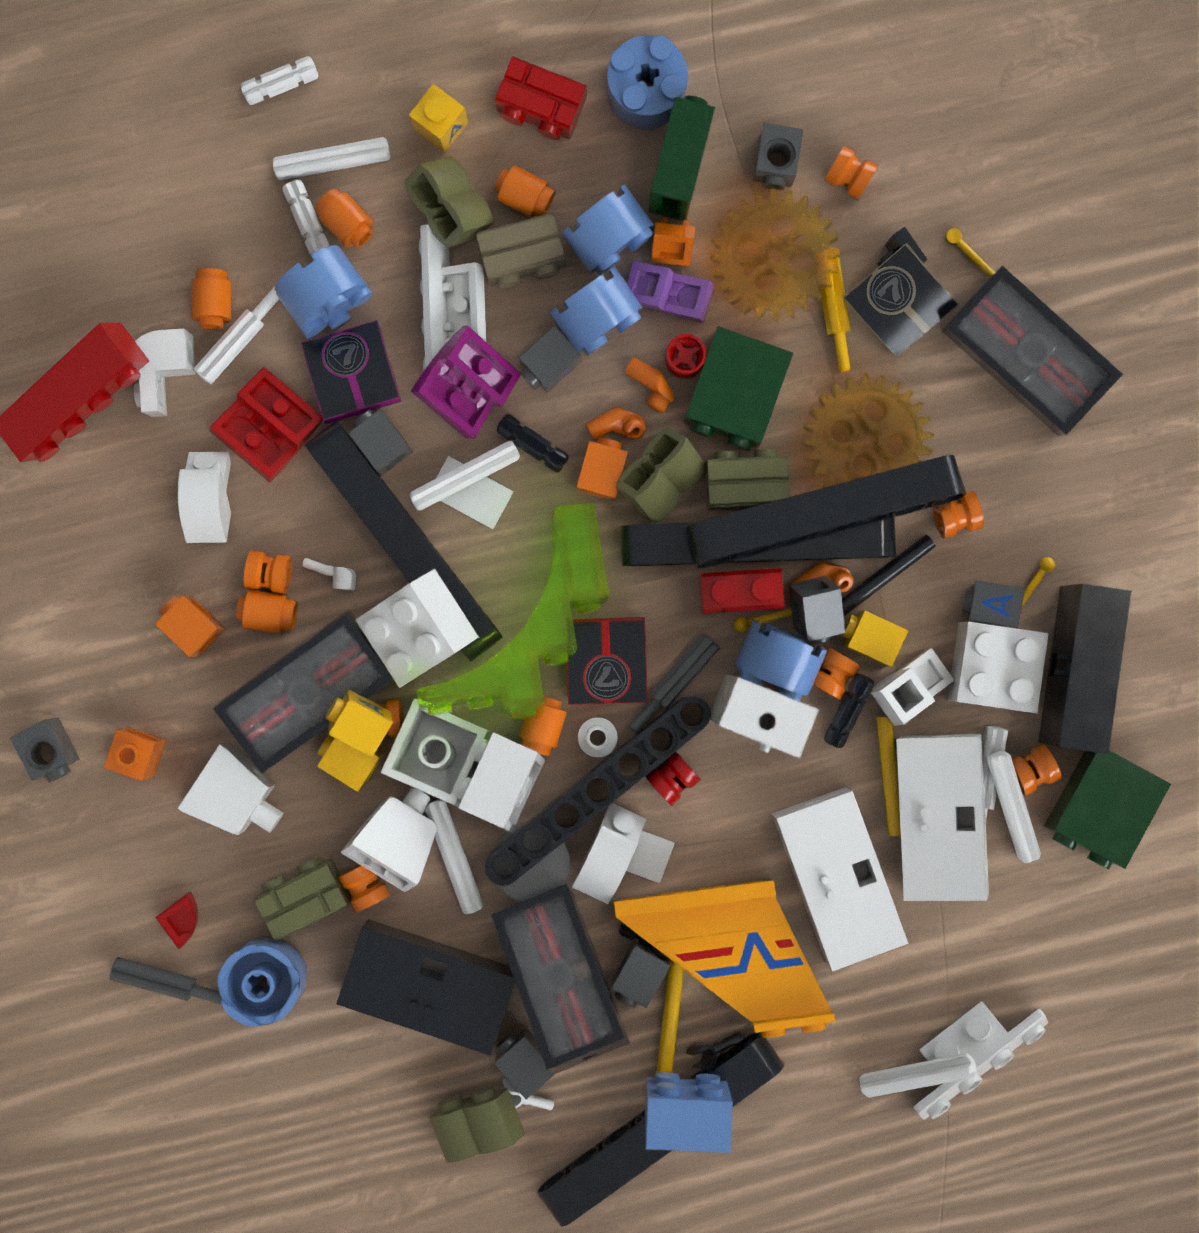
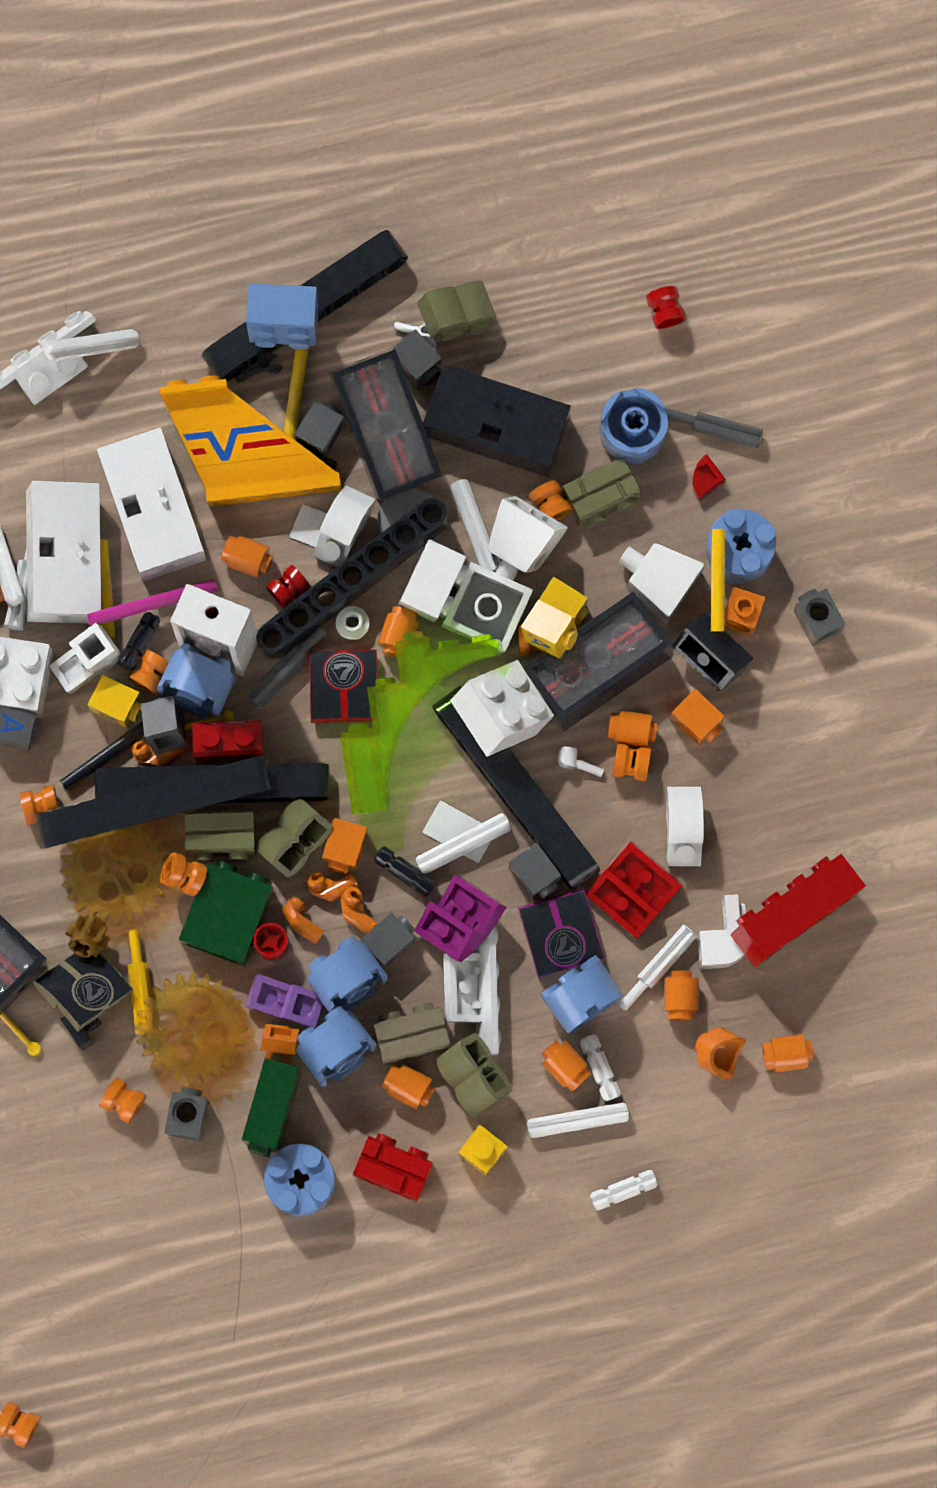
camera: 175 degrees left, 10 degrees down
(89, 234) = (787, 1053): none -> orange brick
(115, 843) = (759, 542): none -> medium blue brick
(157, 786) = (718, 580): none -> yellow bar
(168, 232) = (719, 1051): none -> orange piece
(169, 703) = (712, 653): none -> black brick
(224, 1131) = (665, 305): none -> red wheel
(590, 394) = (353, 910): none -> orange arm
(723, 816) = (247, 556): none -> orange brick
(789, 428) = (183, 874): none -> orange wheel
(835, 756) = (145, 604): none -> dark pink bar
(898, 357) = (87, 936): none -> pearl gold gear

